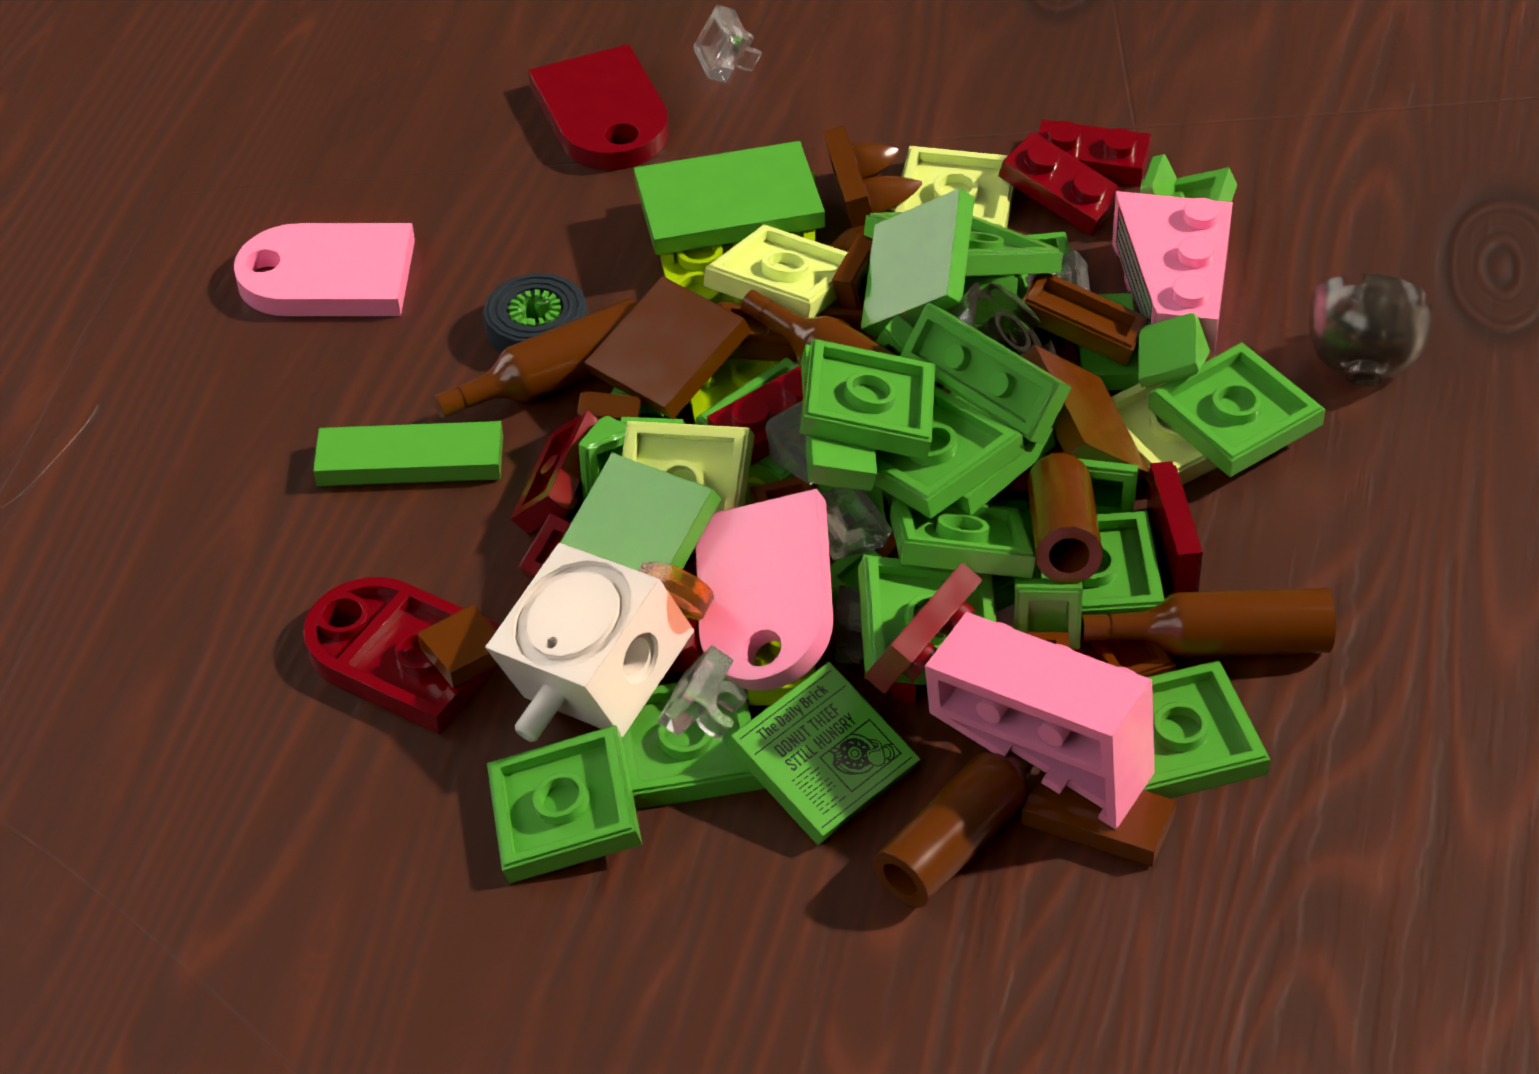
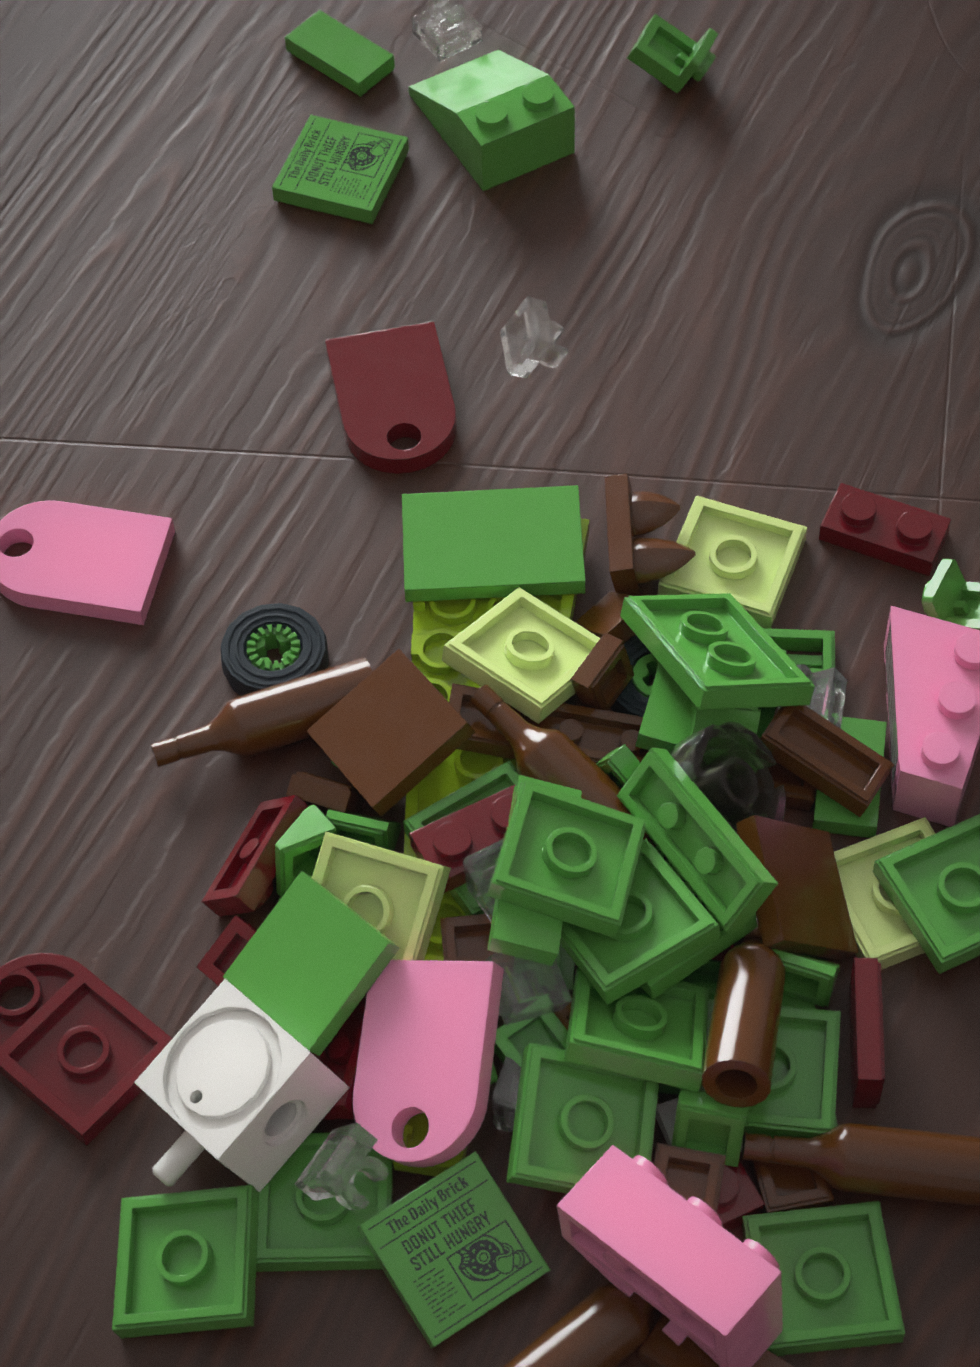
camera: 10 degrees right, 10 degrees up
(408, 453) = (117, 802): bright green tile -> none
(459, 645) = (118, 1057): reddish brown tile -> none
(687, 590) = (332, 1048): clear orange tile -> none
(912, 646) = (589, 1134): dark red plate -> none
(918, 261) = (658, 685): bright green tile -> none
(1060, 183) = (843, 569): dark red plate -> none
(1171, 350) = (907, 815): bright green slope -> none

